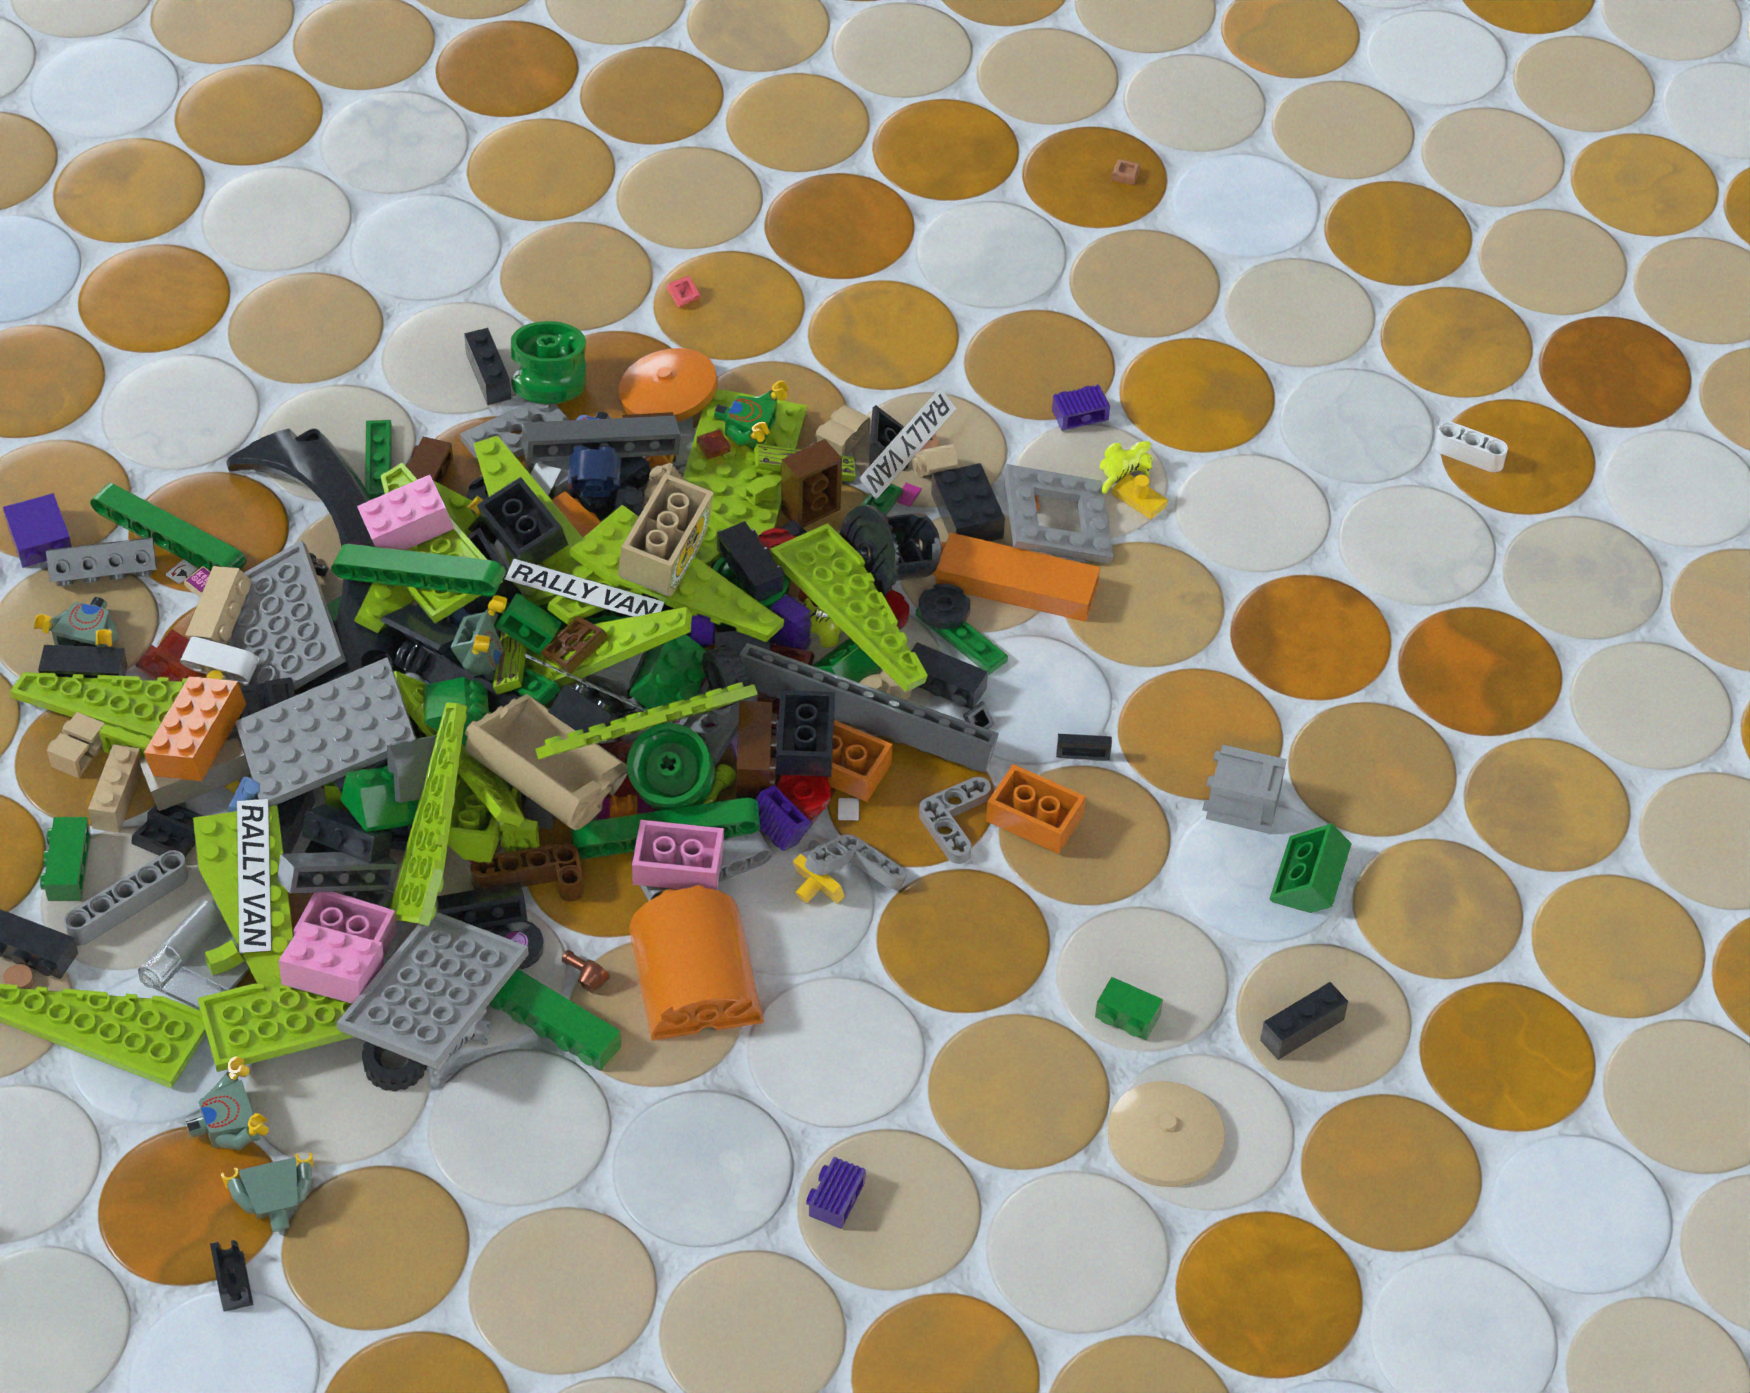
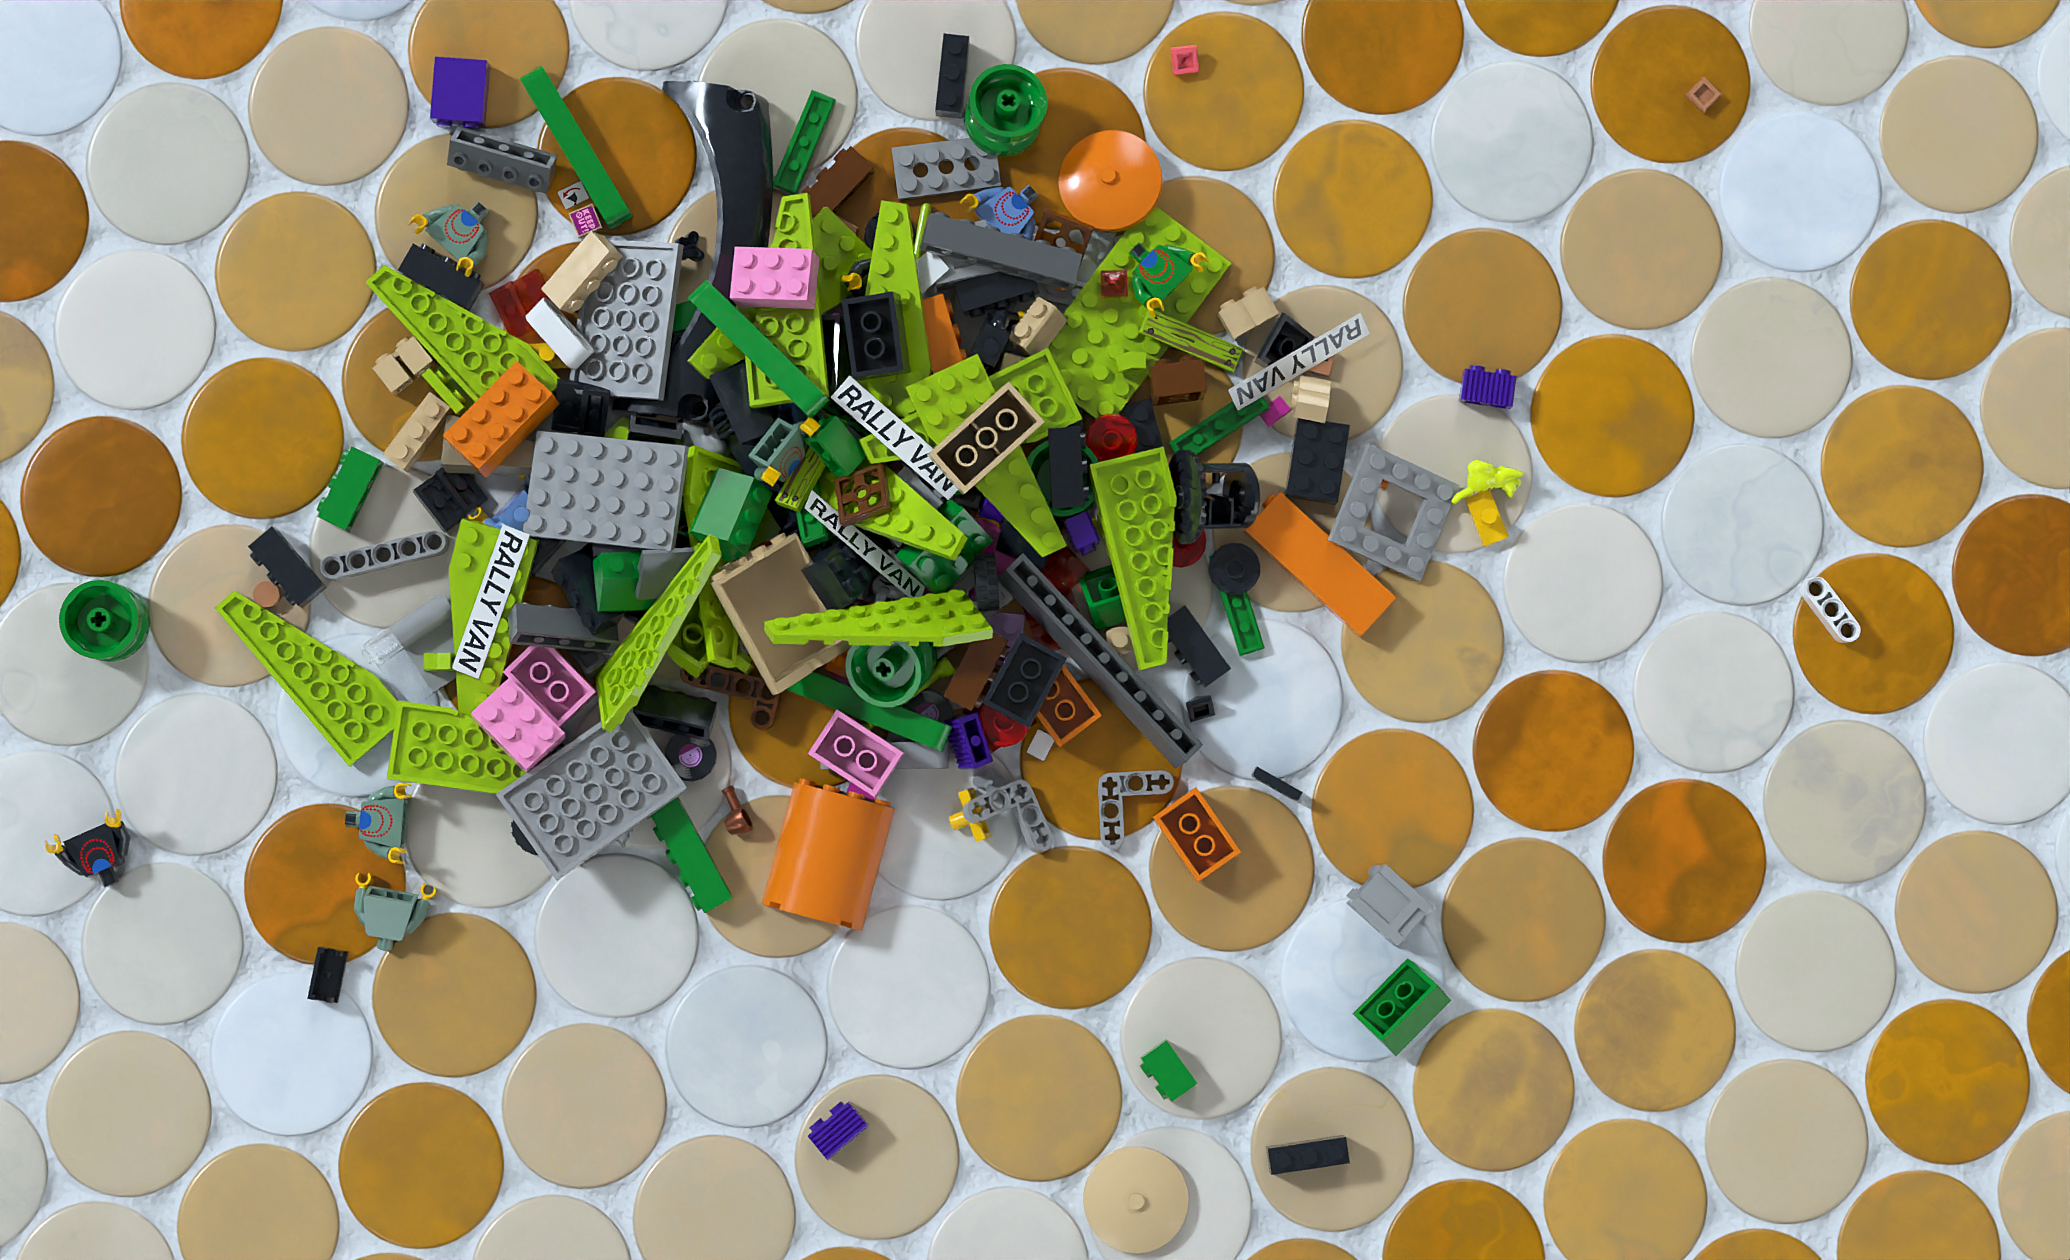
camera: 25 degrees right, 35 degrees up
(594, 472) = (973, 295): dark blue brick -> none

